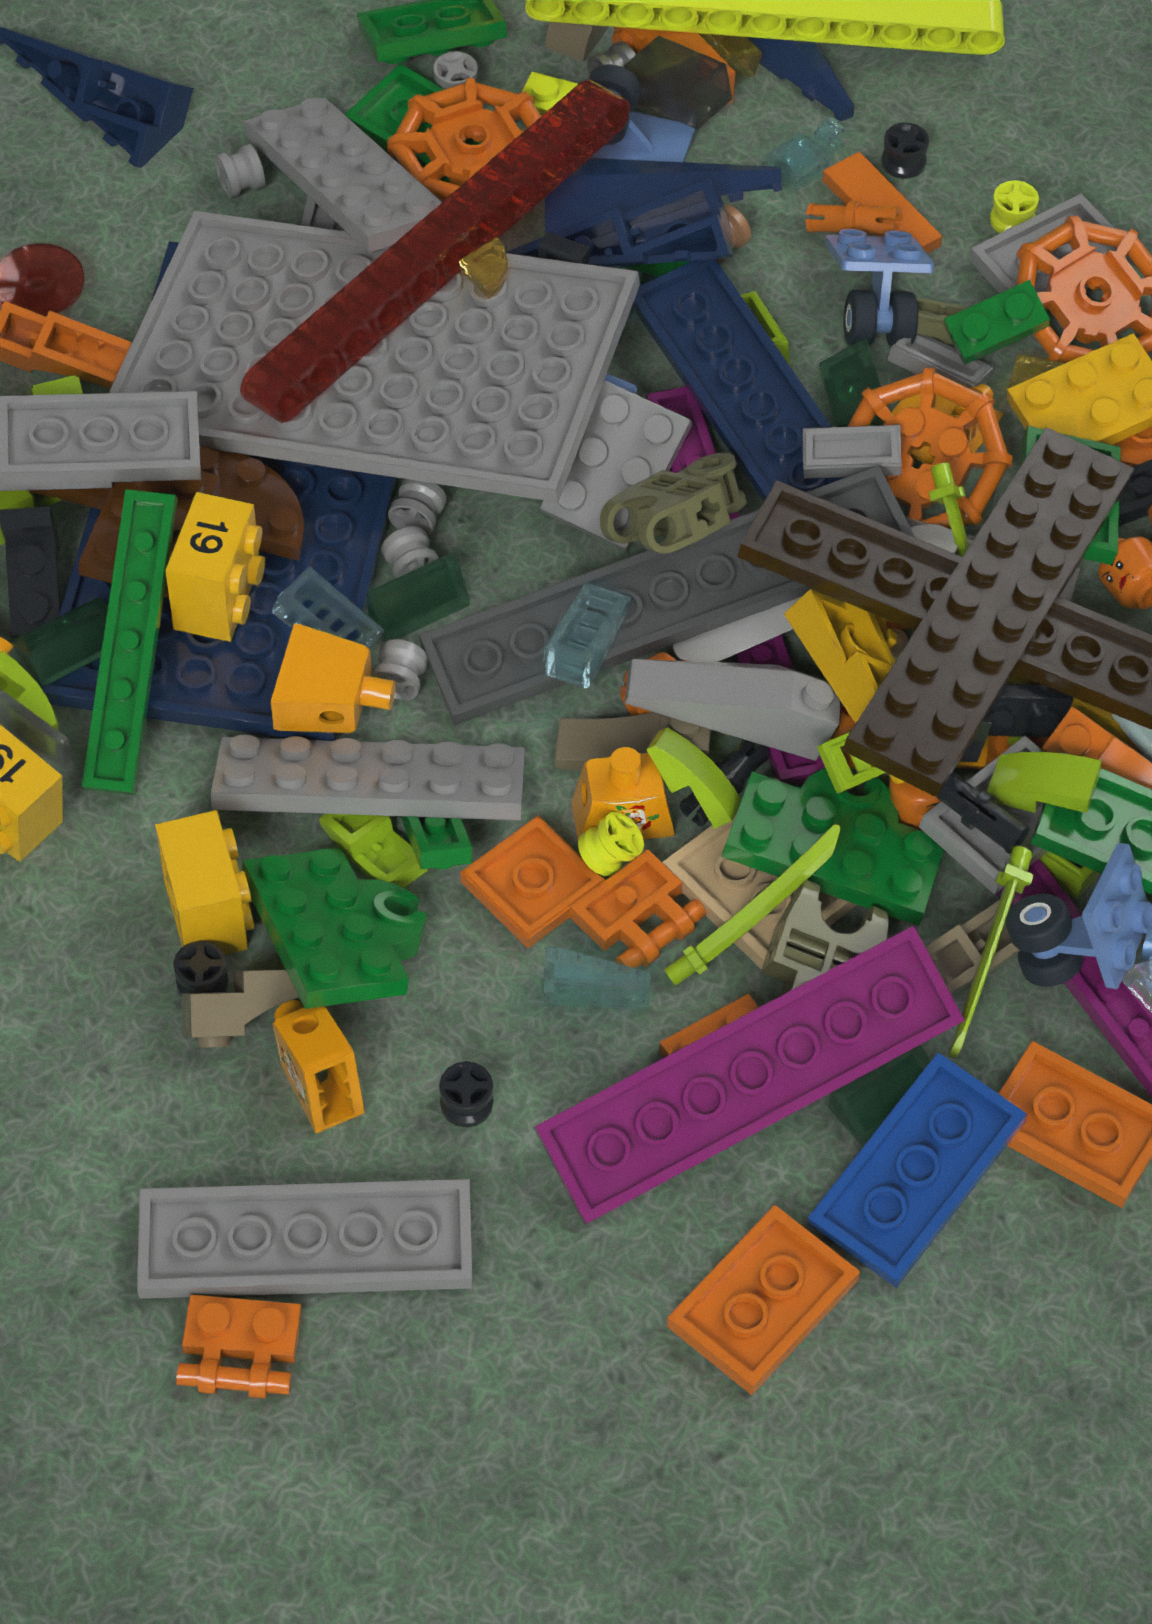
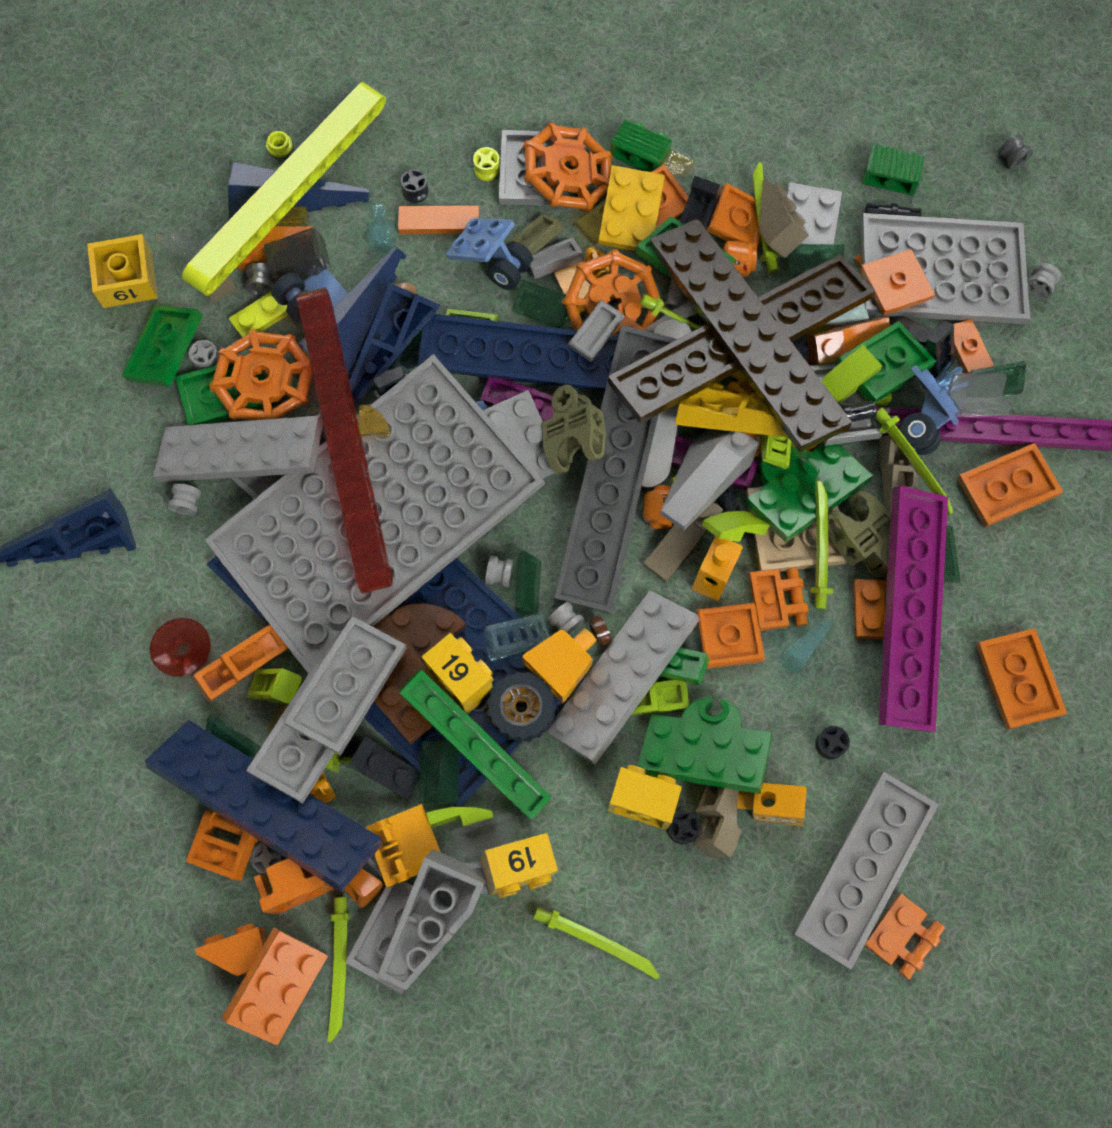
camera: 55 degrees left, 15 degrees up
(203, 670) = (521, 689): none -> black wheel
(415, 717) = (600, 630): none -> reddish brown tile
(417, 505) = (474, 553): light grey wheel -> none
(576, 662) = (628, 541): clear light blue slope -> none
(610, 843) = (741, 587): neon yellow wheel -> none
(852, 217) = (441, 236): orange pin -> none
(917, 1169) = (1000, 568): blue plate -> none
(996, 322) = (560, 217): green plate -> none

